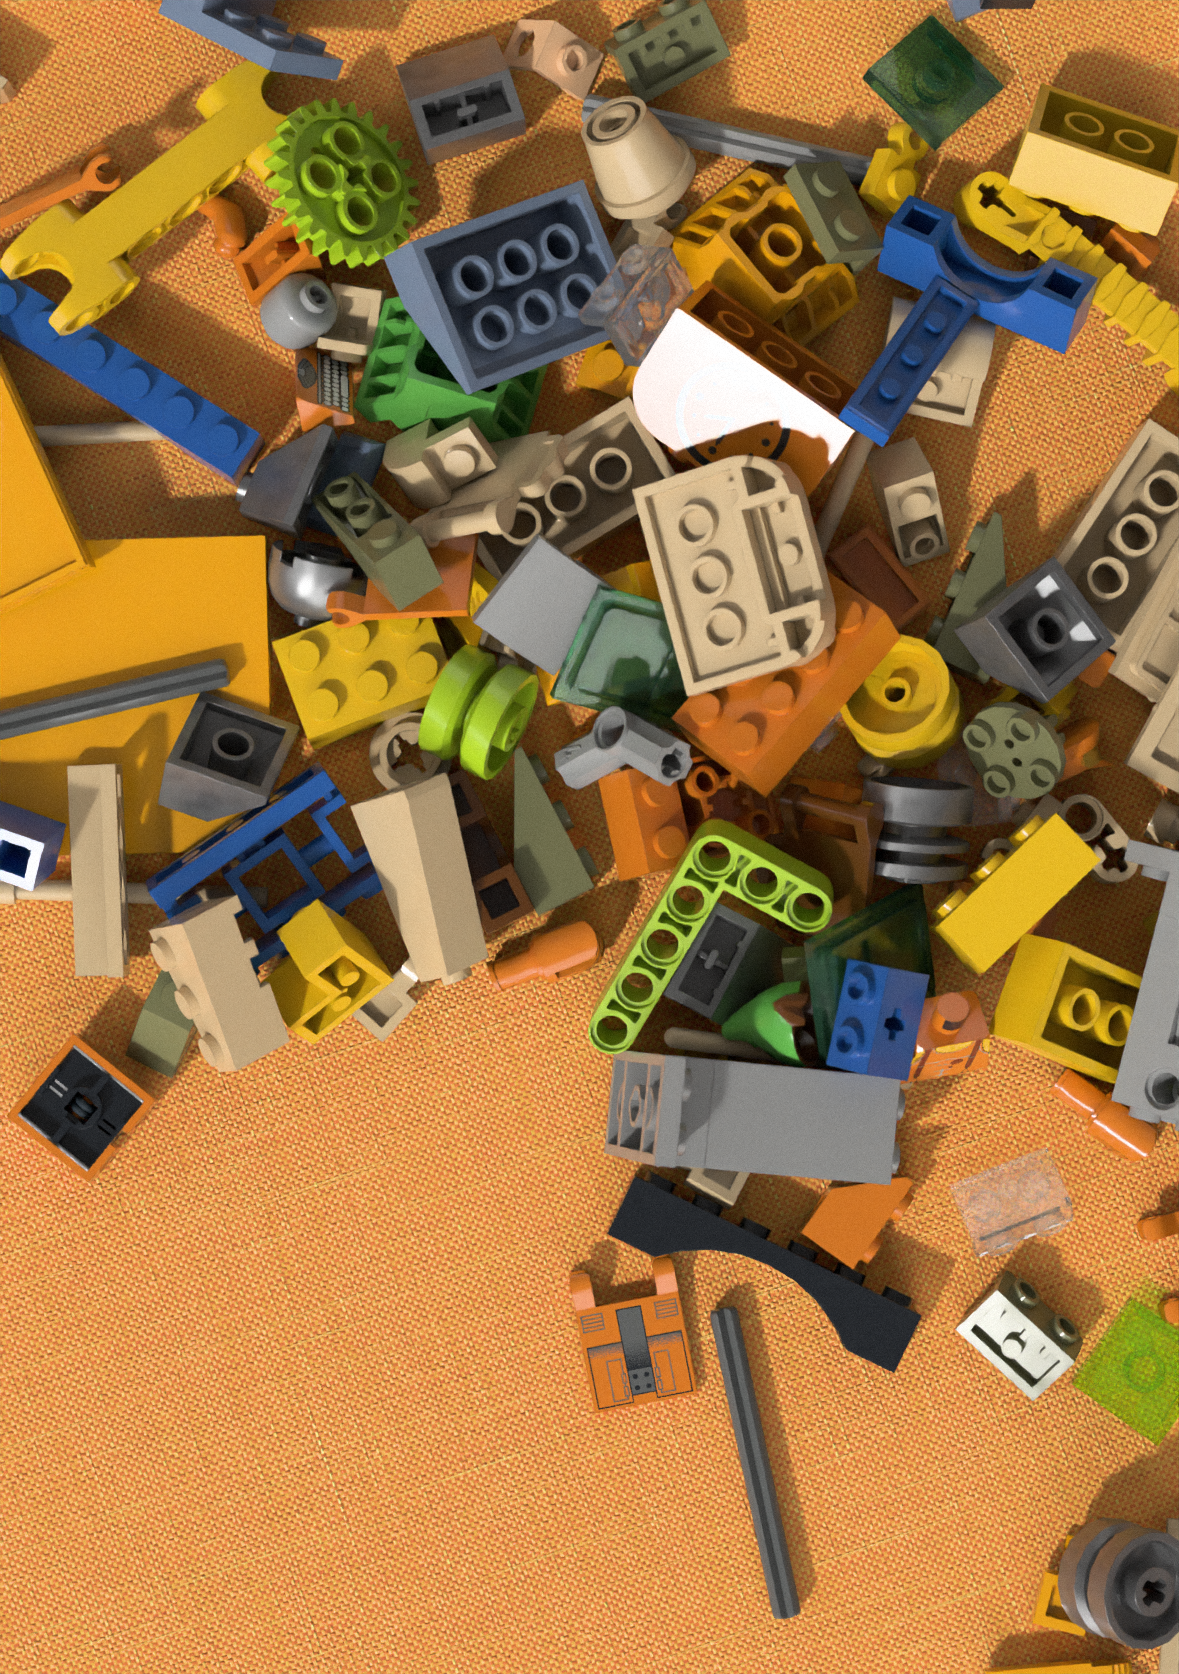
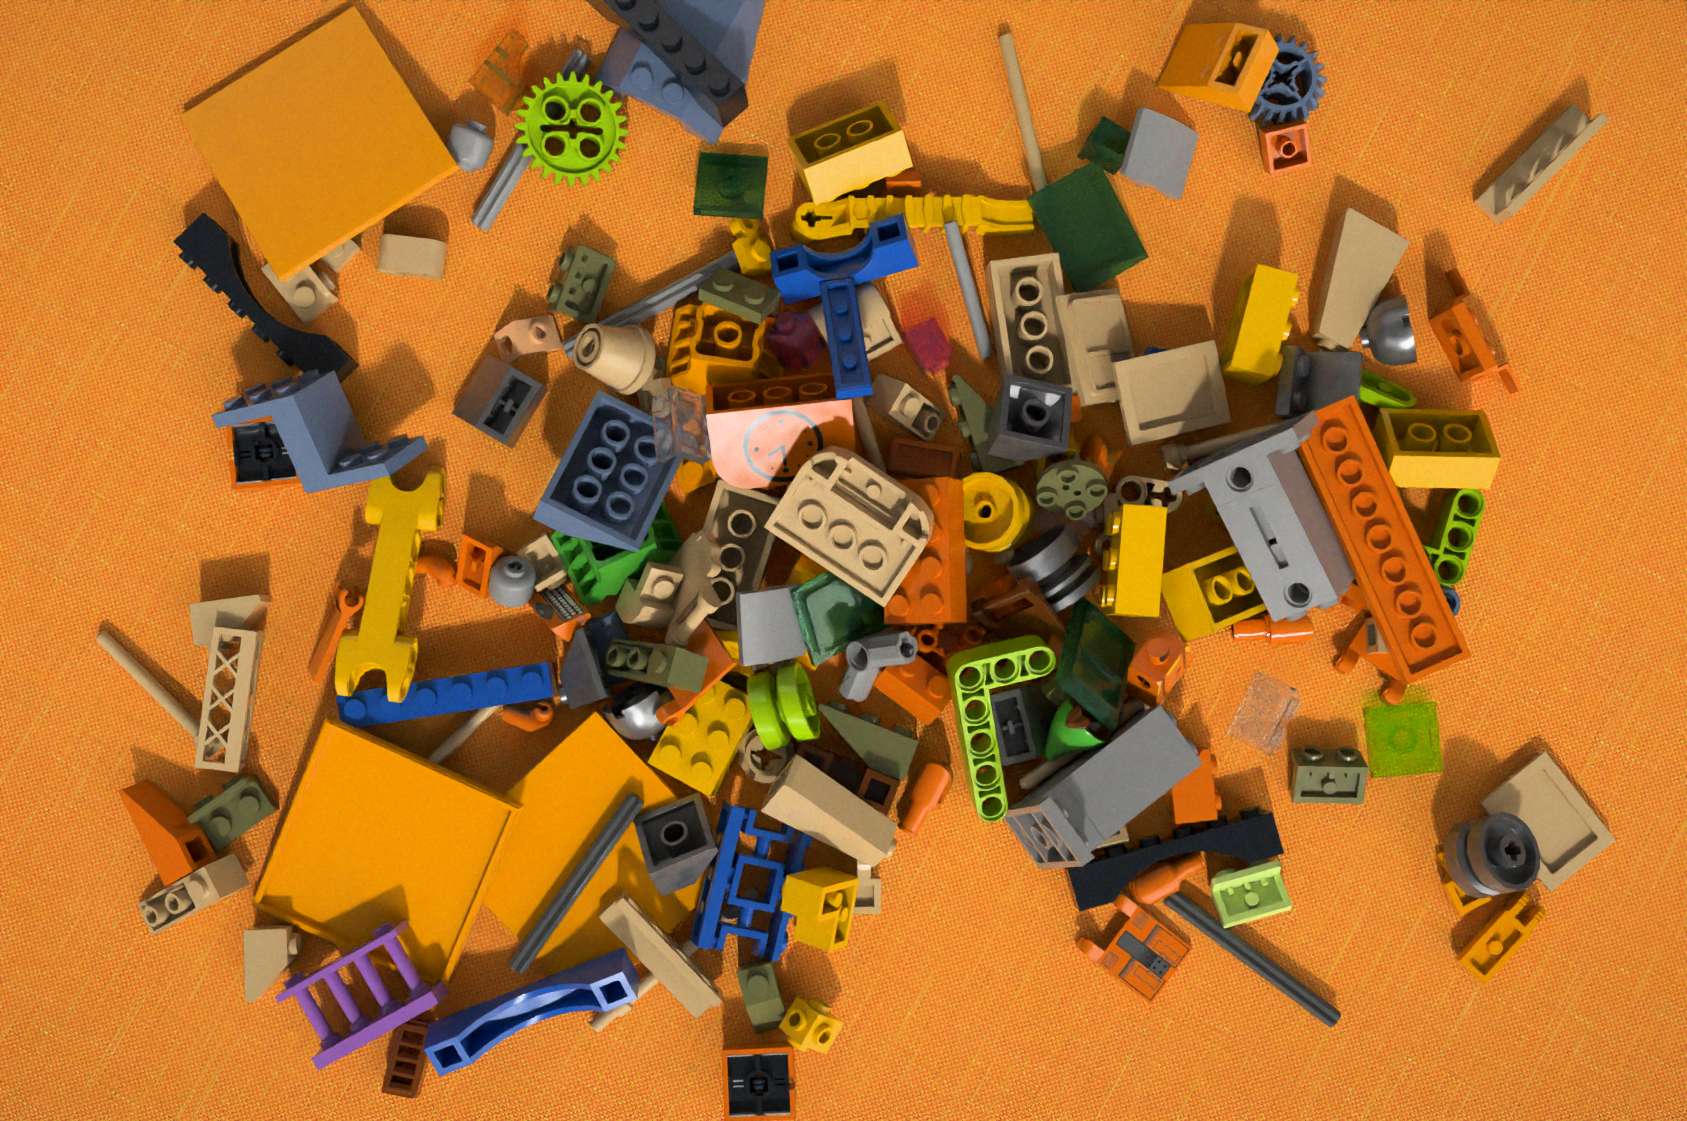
camera: 45 degrees left, 0 degrees up
(183, 484) = (531, 719): none -> orange arm
(195, 1096) = (811, 1025): none -> yellow brick
(219, 984) = (774, 962): tan wedge -> none
(341, 183) = (477, 498): lime gear -> none
(734, 1284) = (1164, 878): none -> orange arm
(816, 1386) = (1249, 893): none -> yellowish green bracket
(852, 317) = (795, 340): none -> clear pink brick
(877, 1020) = (1124, 686): blue brick -> none
(996, 458) = (928, 347): none -> clear pink brick
(1098, 430) = (968, 288): none -> light grey bar

